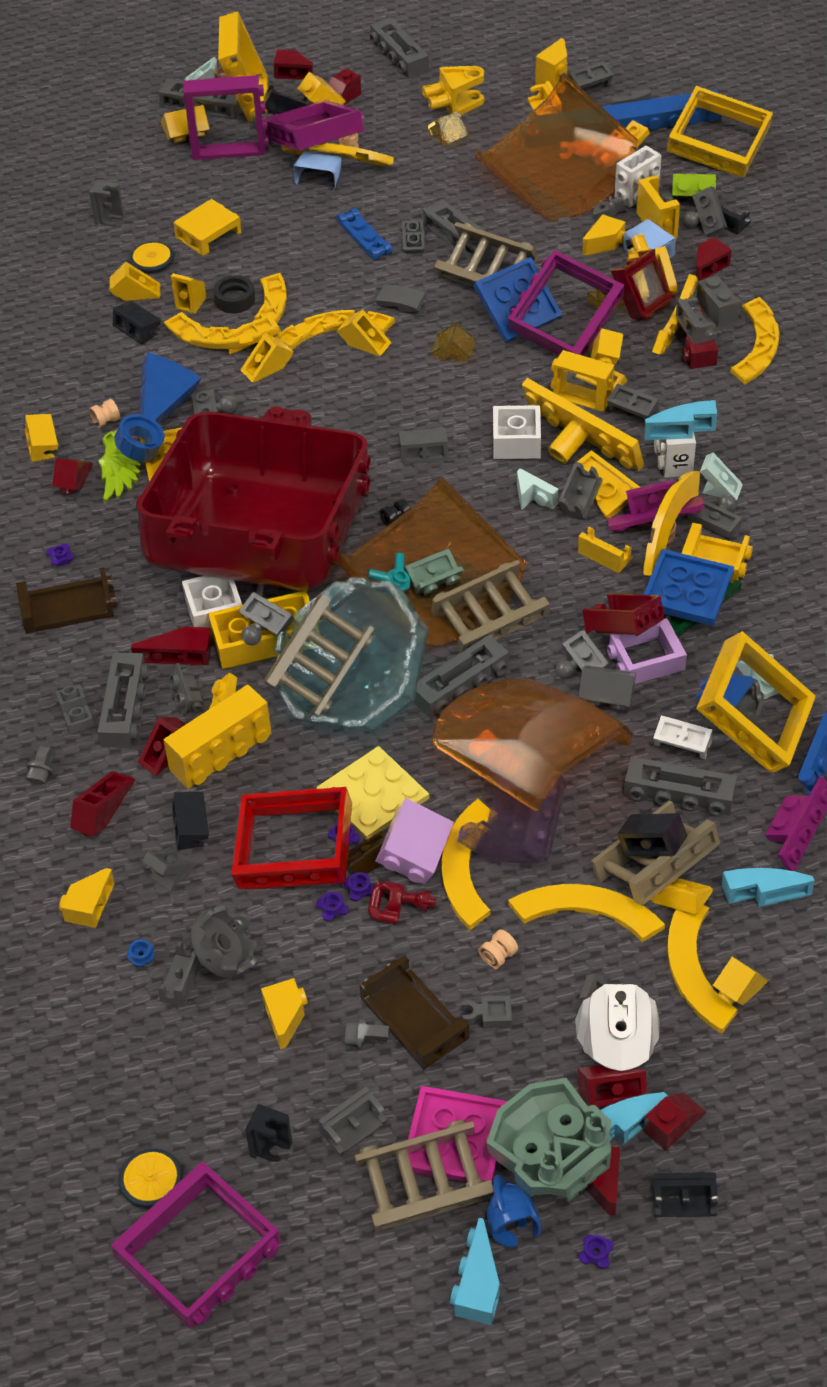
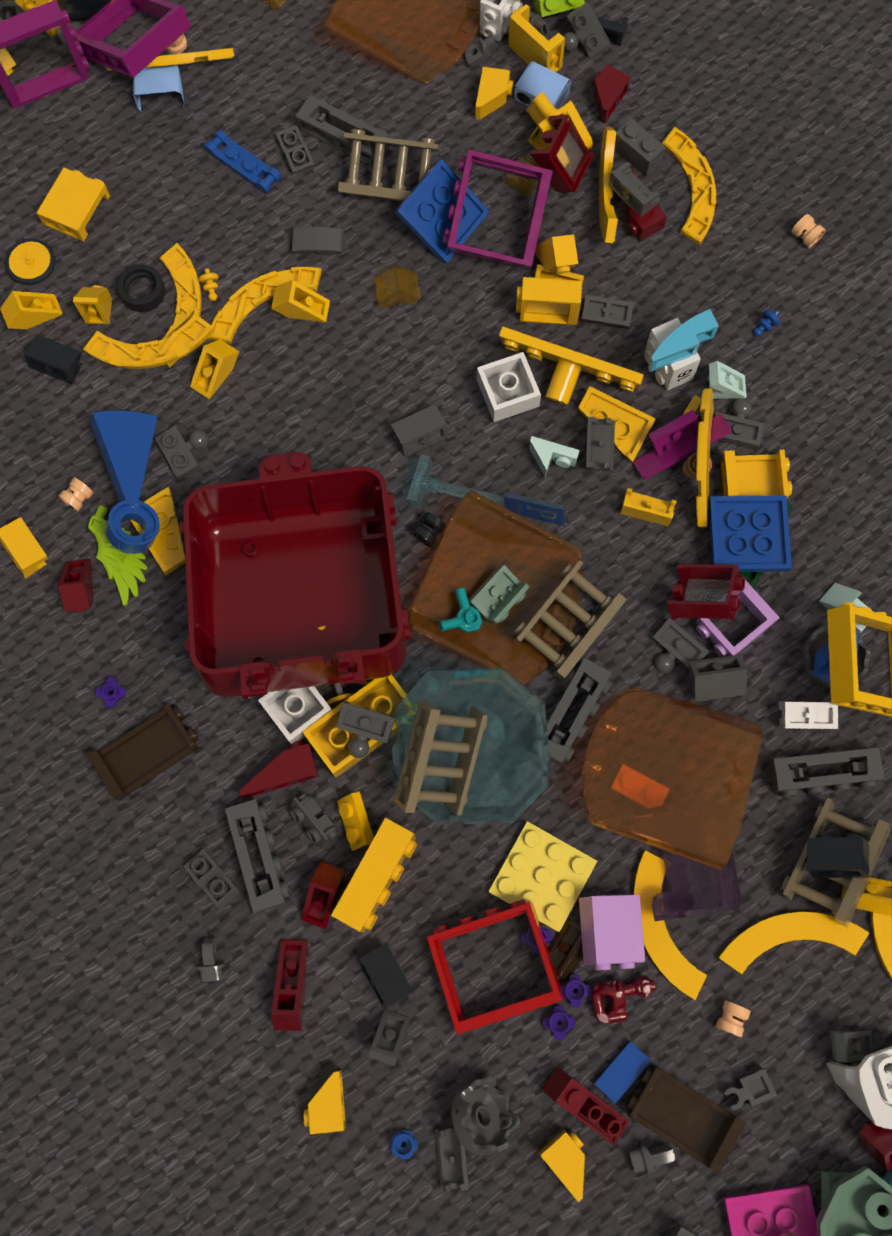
camera: 20 degrees left, 25 degrees up
(293, 303) = (211, 286): none -> yellow hair
(324, 973) = (585, 1105): none -> dark red slope
(370, 961) = (622, 1072): none -> blue tile
(500, 517) = (518, 504): none -> clear light blue piece
(778, 451) = (765, 324): none -> blue hair

